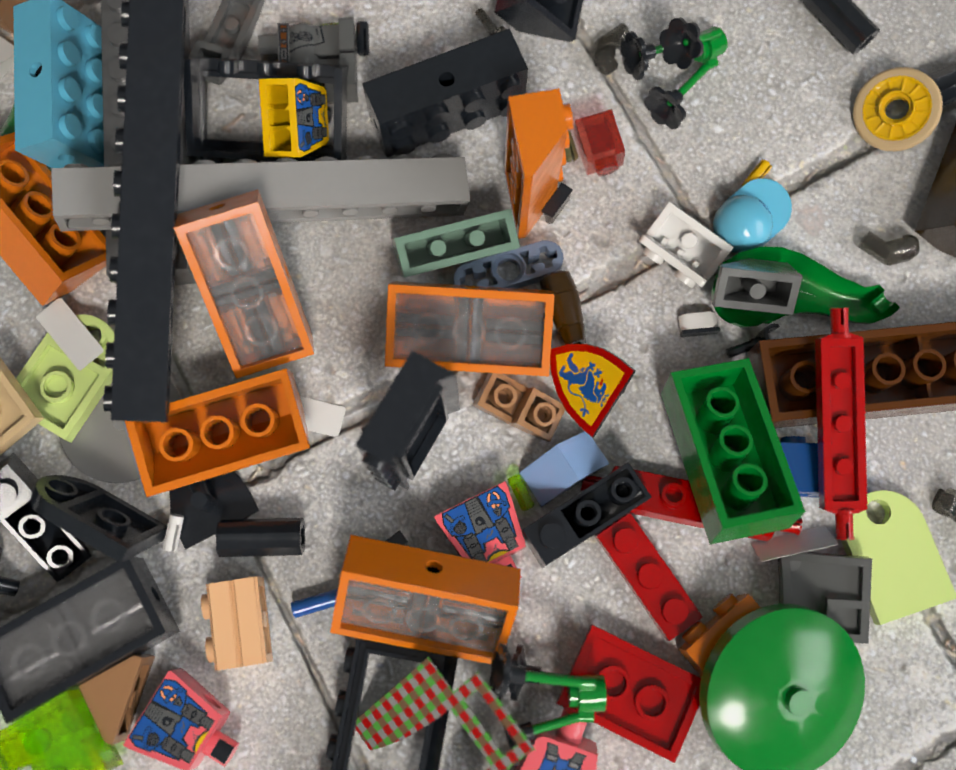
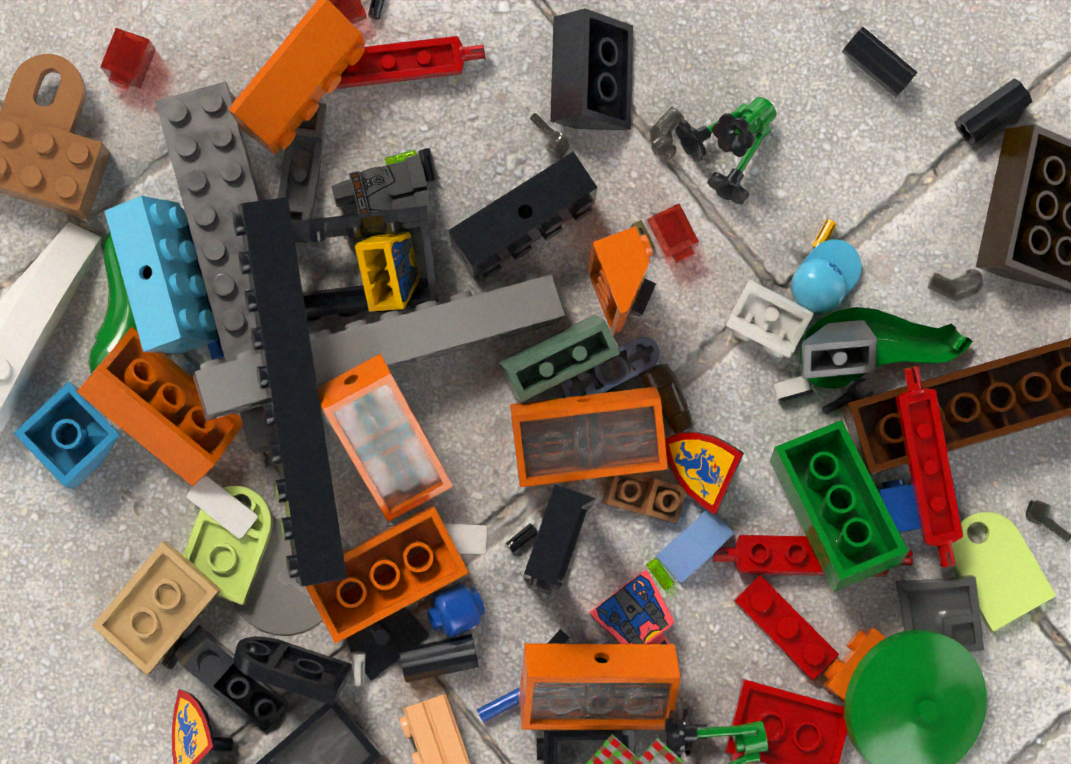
camera: 15 degrees left, 5 degrees up
(290, 488) = (455, 610): none -> blue head
(585, 514) = (721, 585): black slope -> none
(794, 544) = (908, 575): white sticker -> none
(890, 85) = (967, 149): wheel -> none

